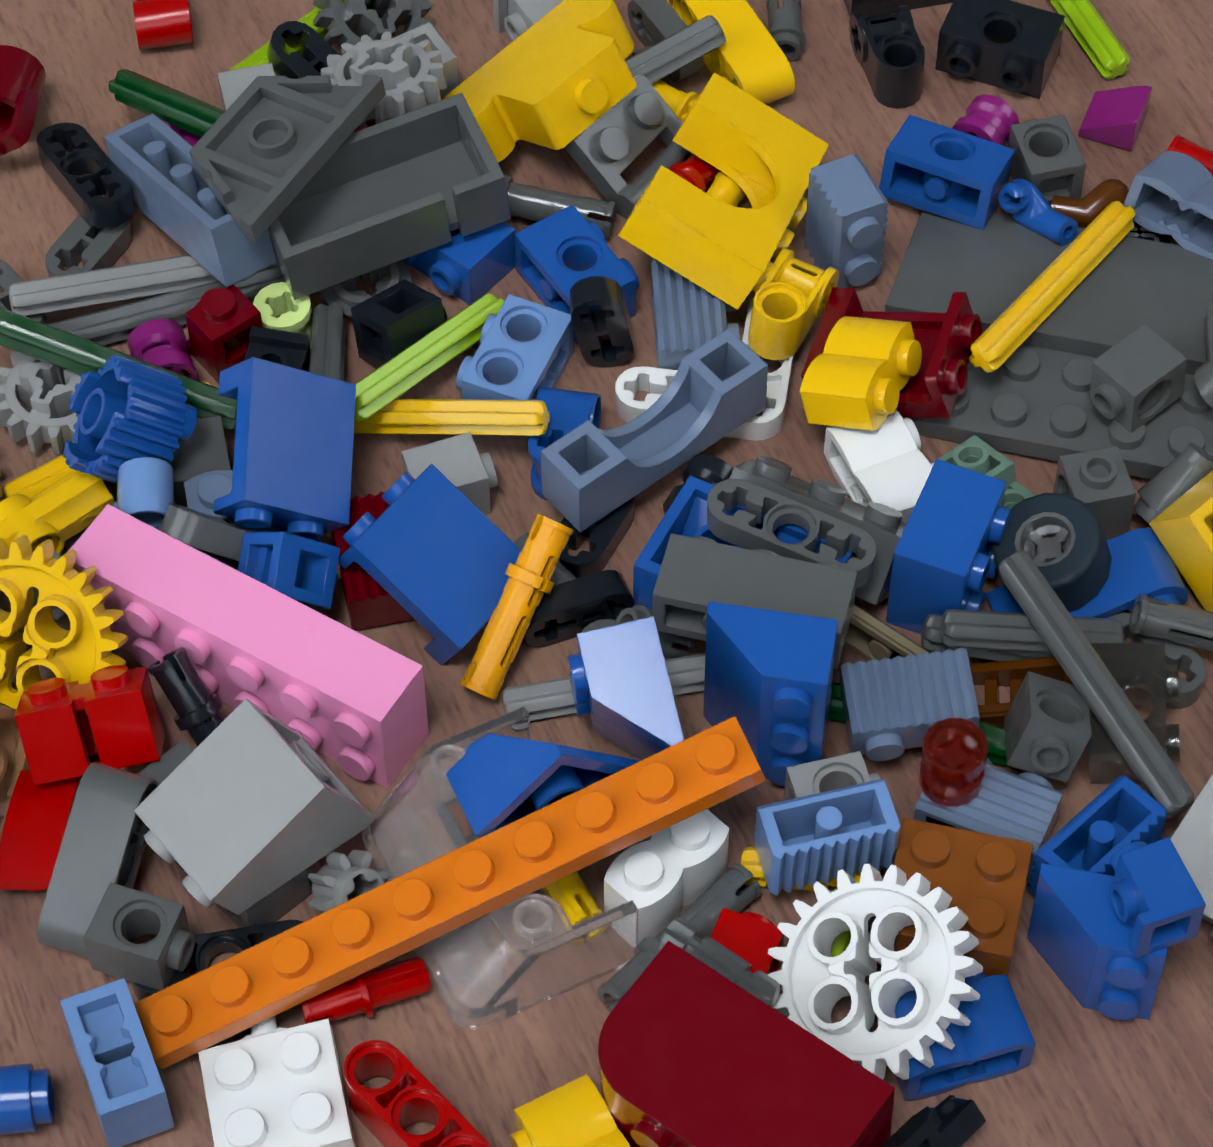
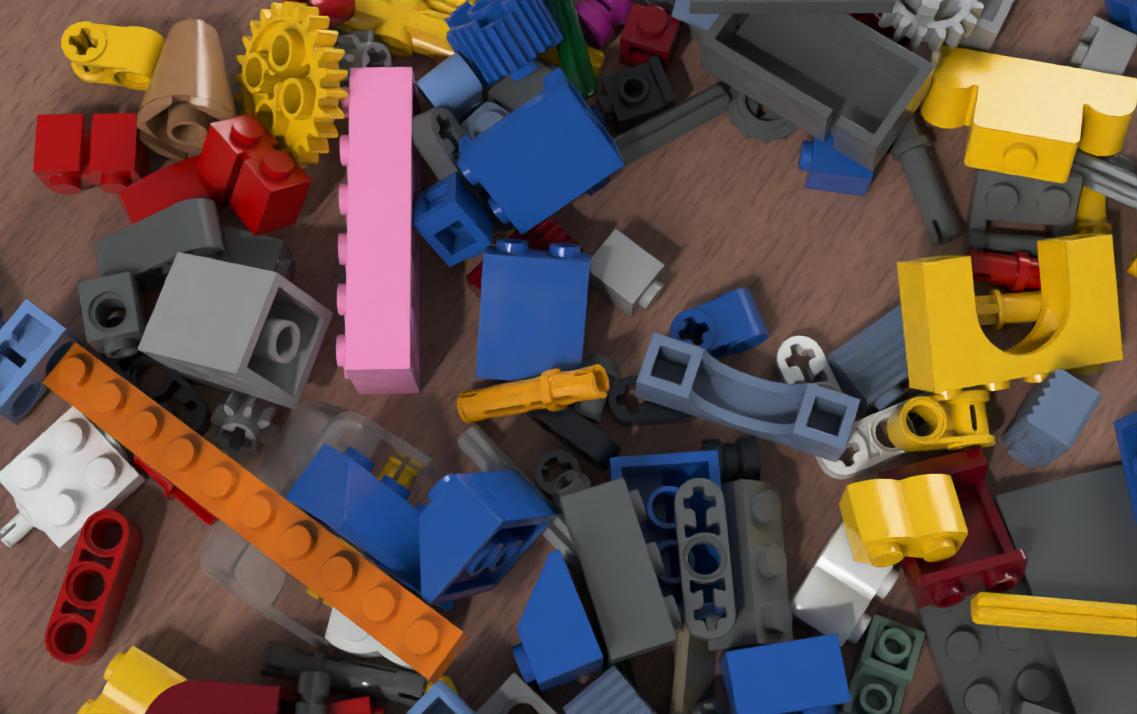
camera: 60 degrees right, 20 degrees up
(195, 707) = (315, 234): black pin -> none
(278, 301) = (690, 79): yellowish green wheel -> none
(395, 321) = (739, 152): black brick -> none
(423, 357) = (716, 189): lime axle -> none
(458, 417) = (671, 238): yellow axle -> none
(518, 352) = (765, 269): medium blue brick -> none
(565, 250) = (879, 217): blue brick -> none
(593, 324) = (829, 294): black beam -> none

